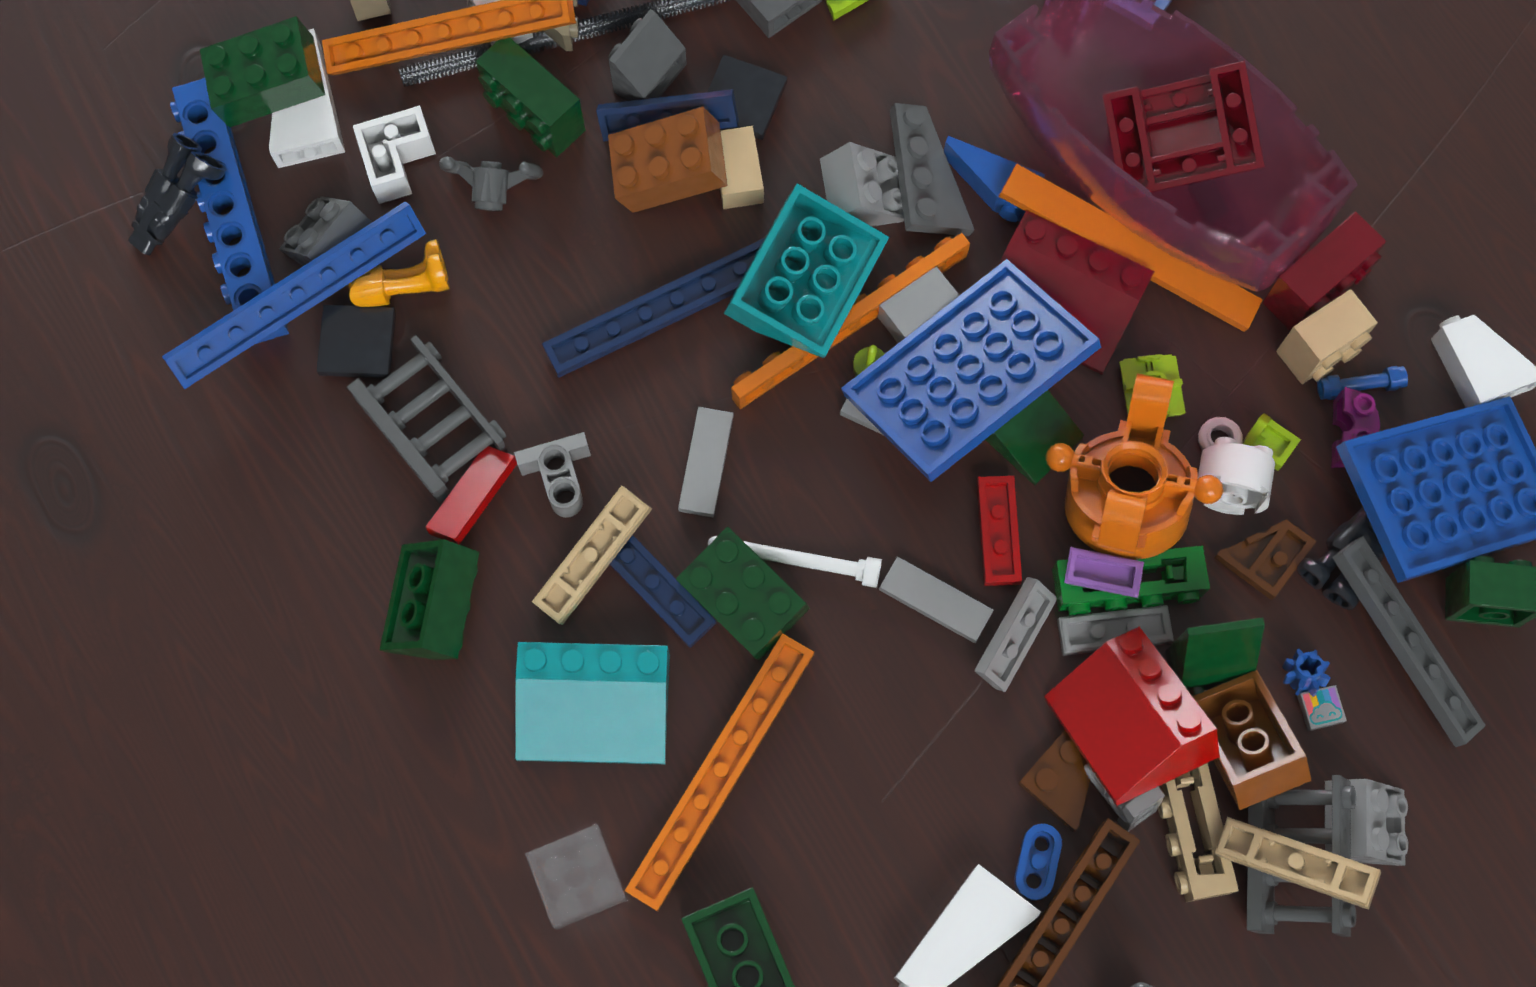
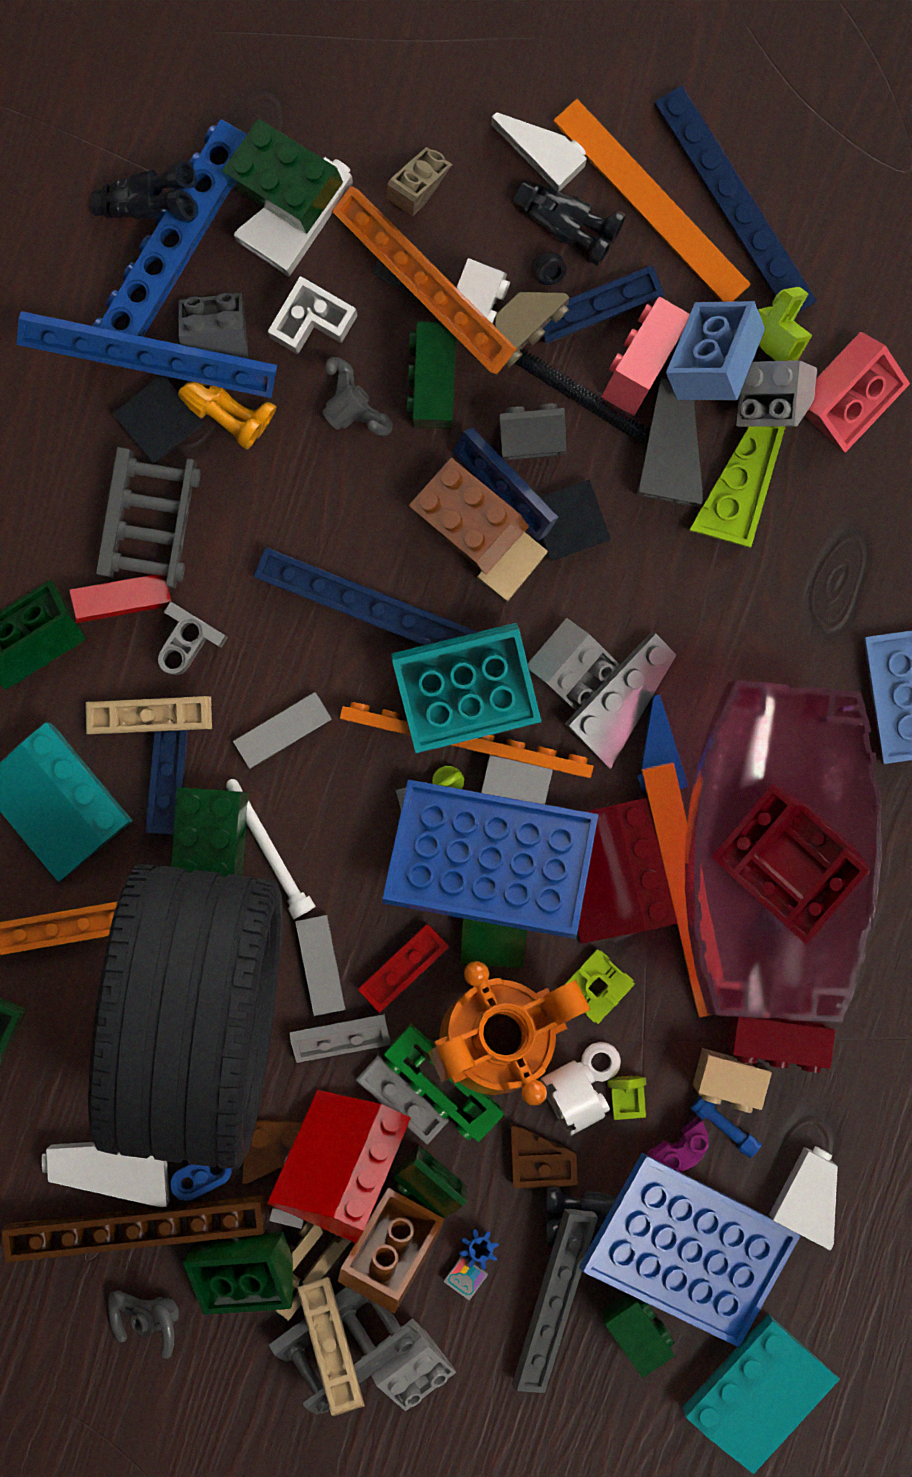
camera: 45 degrees right, 15 degrees up
(896, 700) = (185, 1016): none -> black tyre
(1104, 572) = (416, 1056): medium lavender tile -> none
(1160, 895) = (241, 1274): none -> dark green slope

